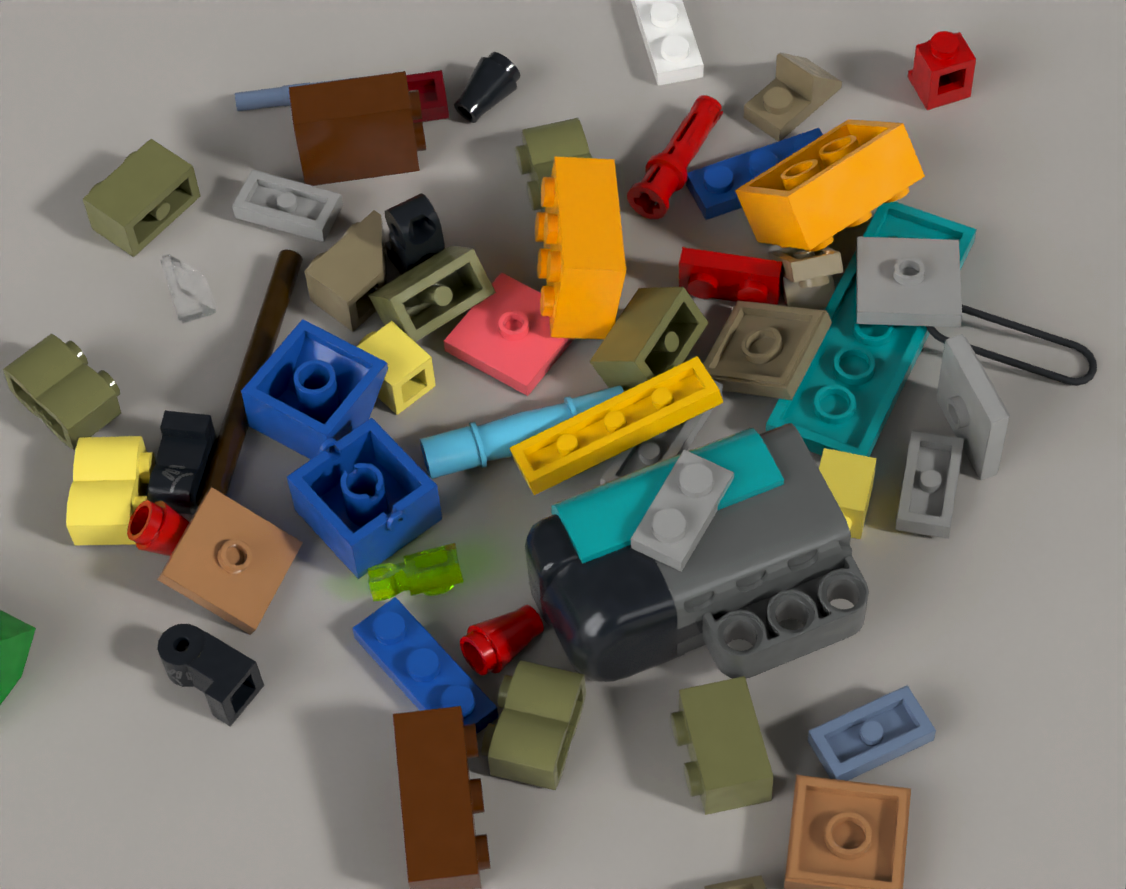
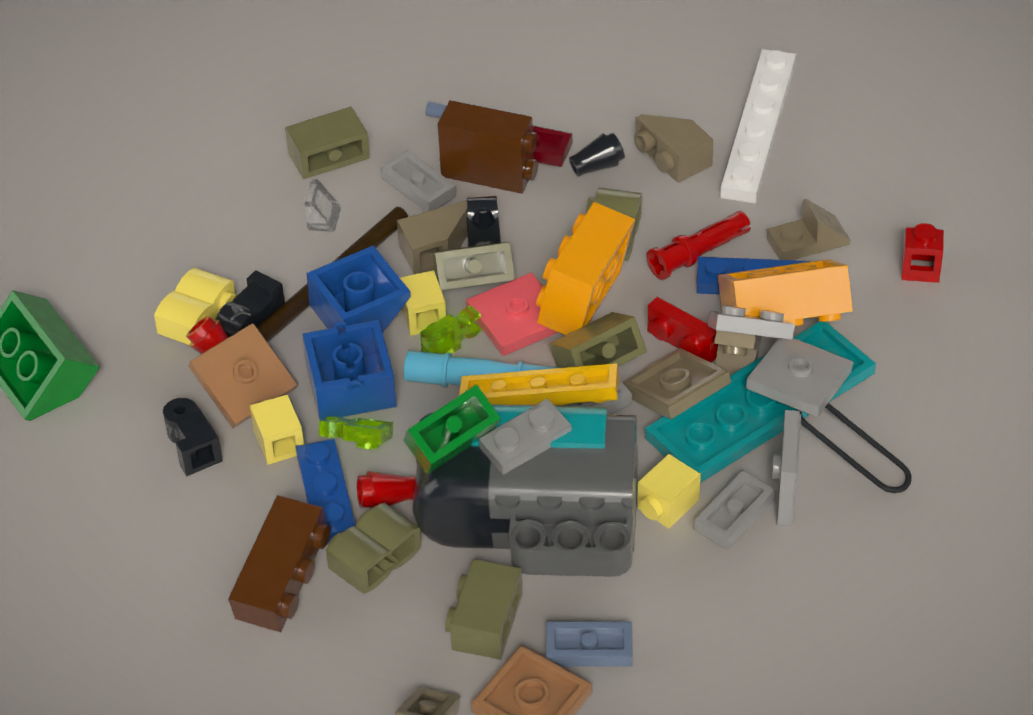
camera: 25 degrees right, 10 degrees down
(63, 389) = (206, 238): olive brick -> none
(316, 614) = (276, 428): none -> light yellow brick
(450, 401) = (448, 332): none -> clear neon green plate
(571, 39) = (674, 144): none -> dark tan slope
(599, 543) = (451, 429): none -> green brick
(815, 245) = (768, 324): none -> light grey plate

